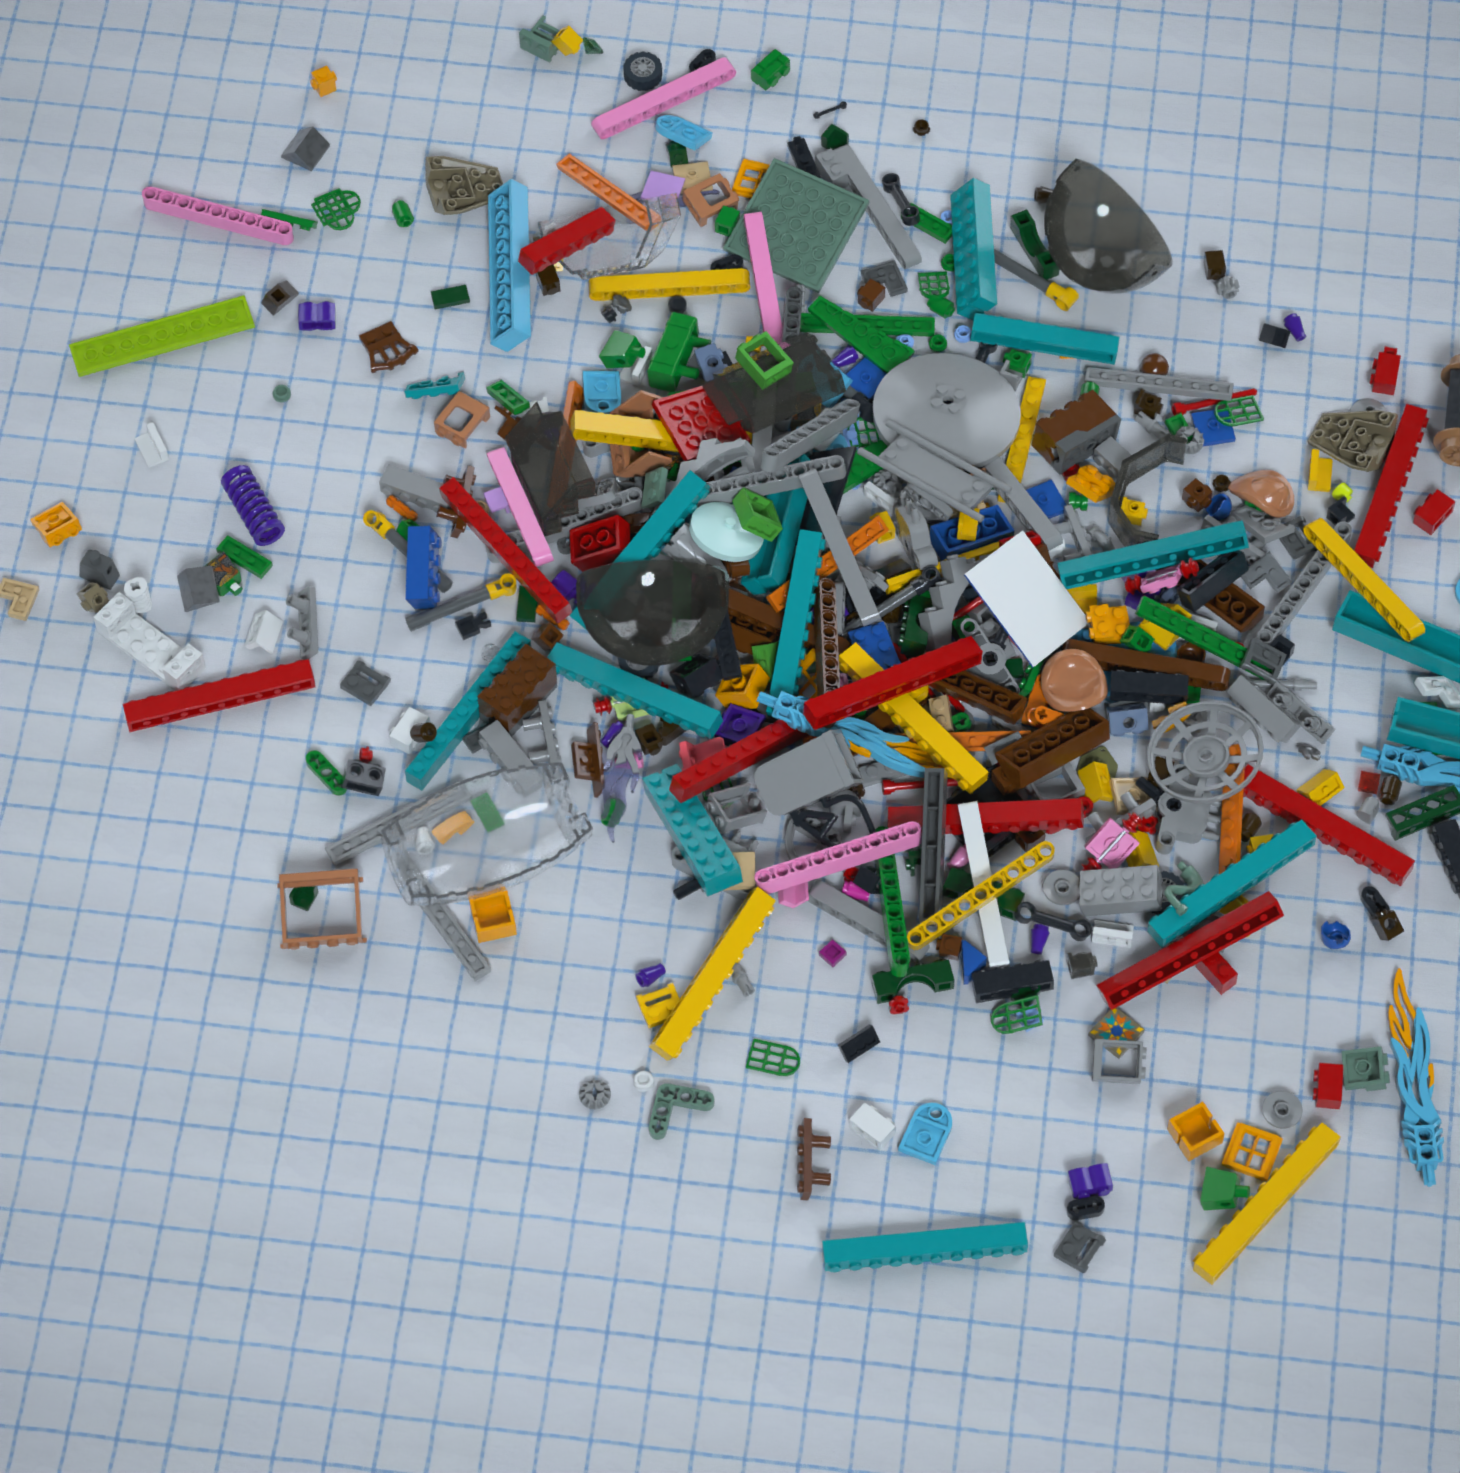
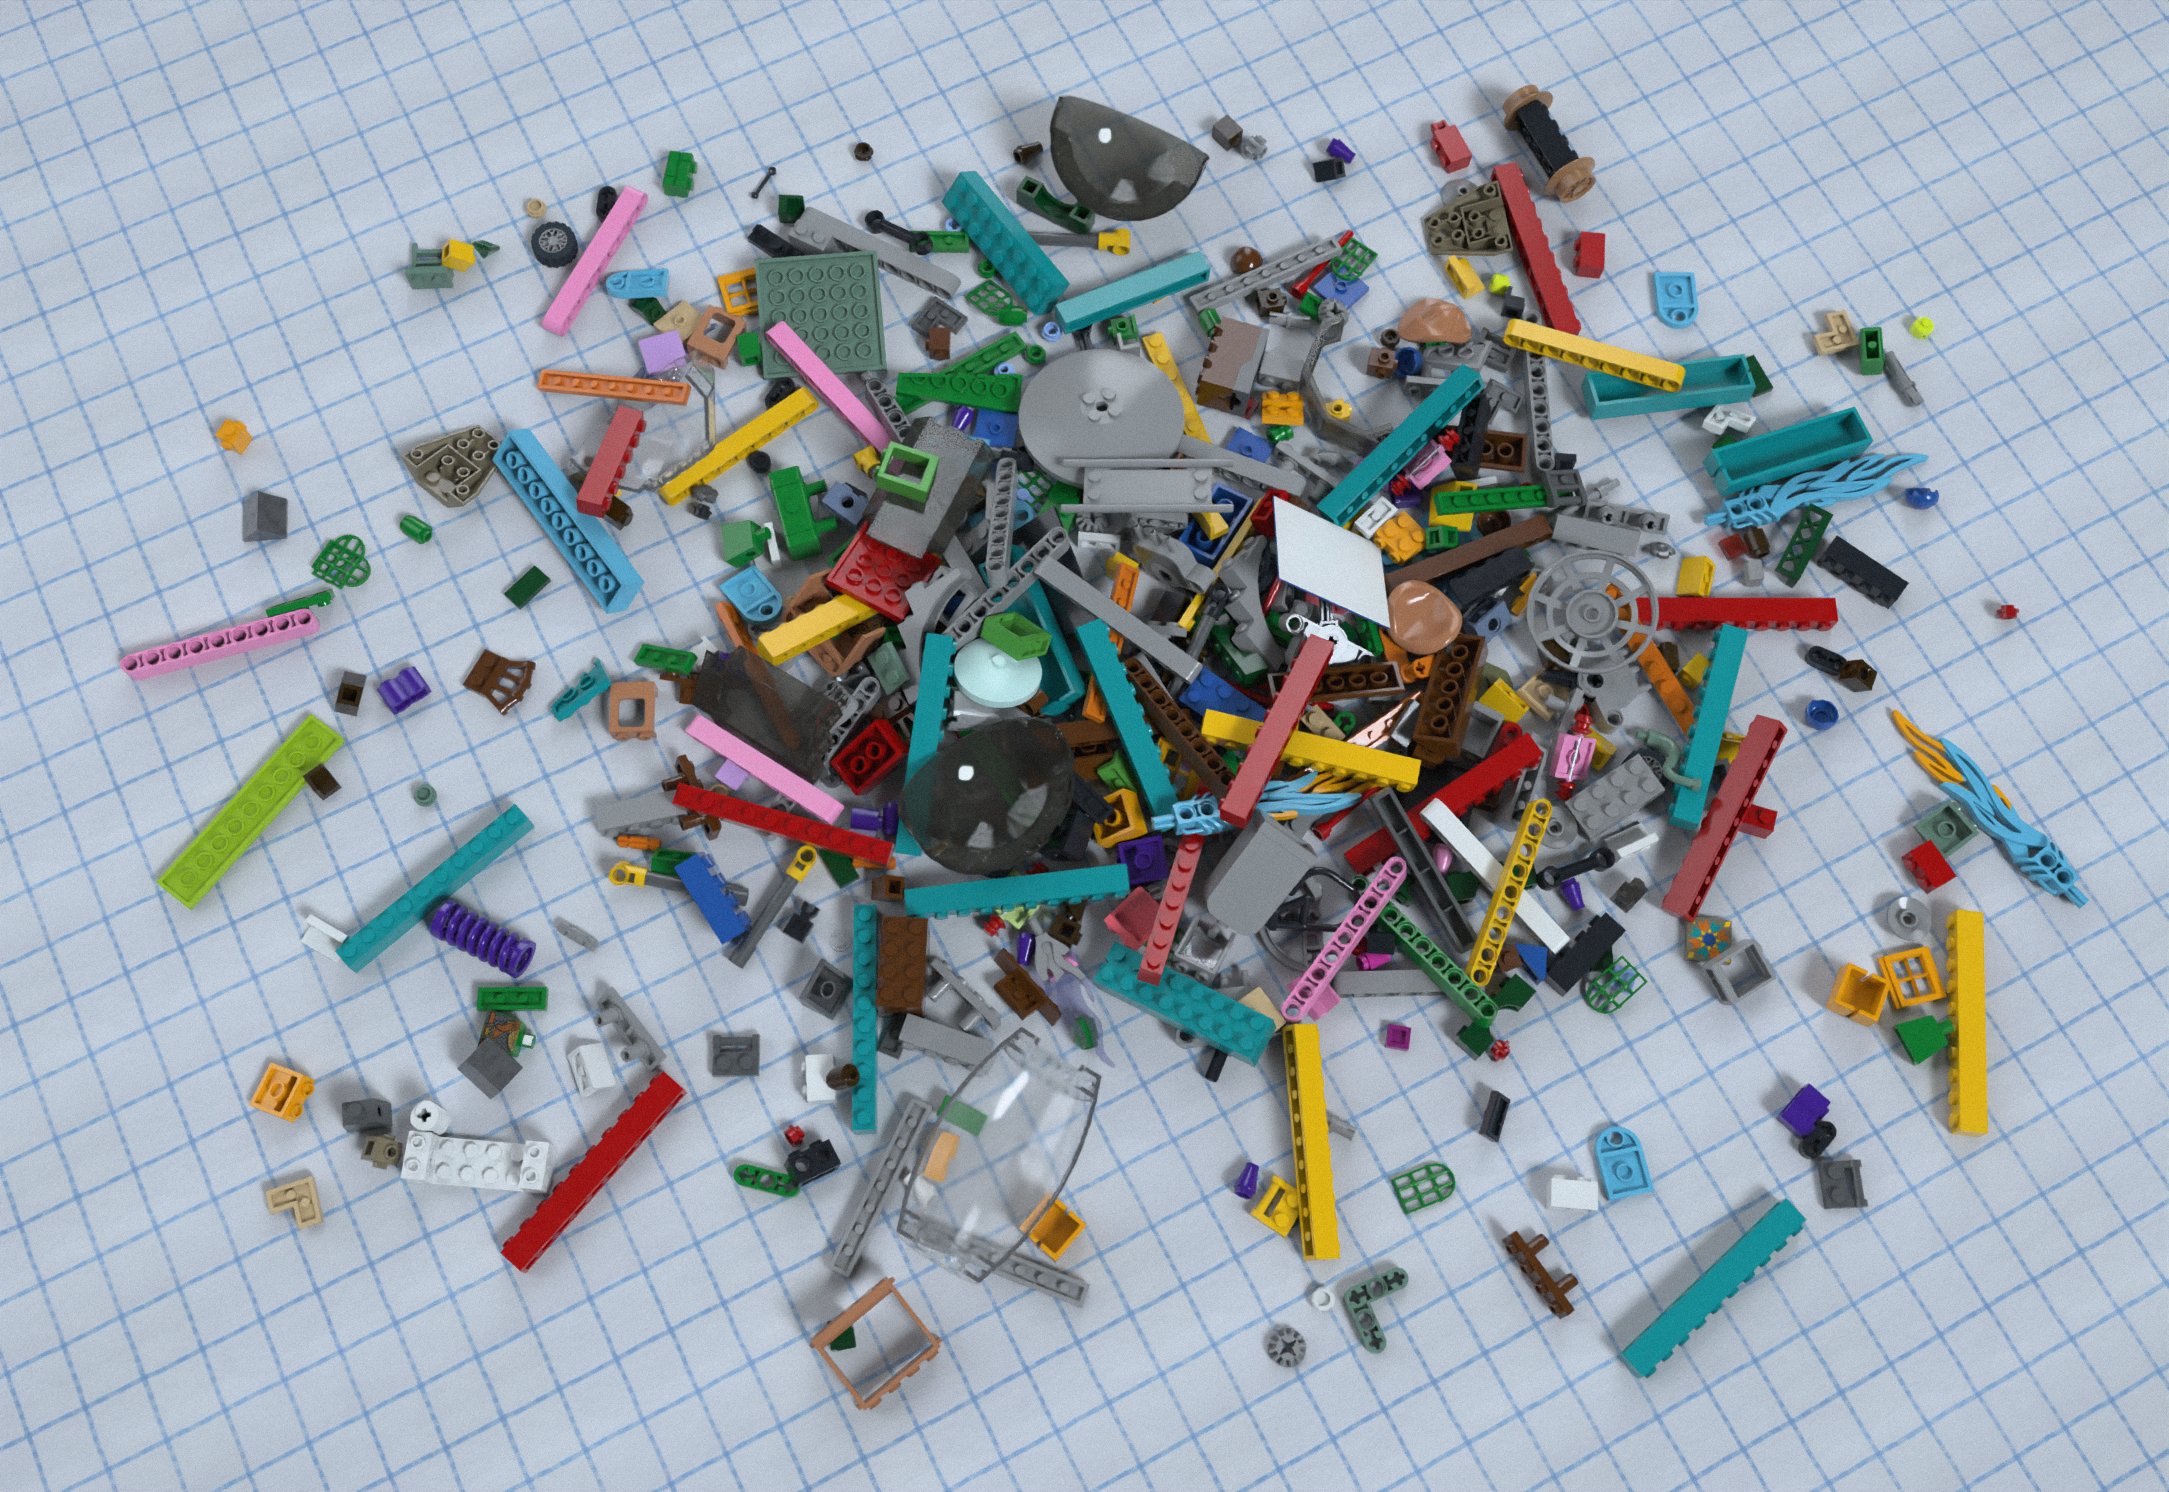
camera: 40 degrees left, 10 degrees up
(220, 343) = (322, 781): none -> dark brown panel
(253, 454) = (434, 889): none -> teal brick
(316, 543) = (577, 936): none -> light grey axle
(454, 675) = (826, 989): none -> flat silver slope
(649, 38) = (536, 208): none -> tan plate
(1066, 838) = (1517, 796): none -> light grey brick
(1098, 596) = (1374, 518): none -> white panel

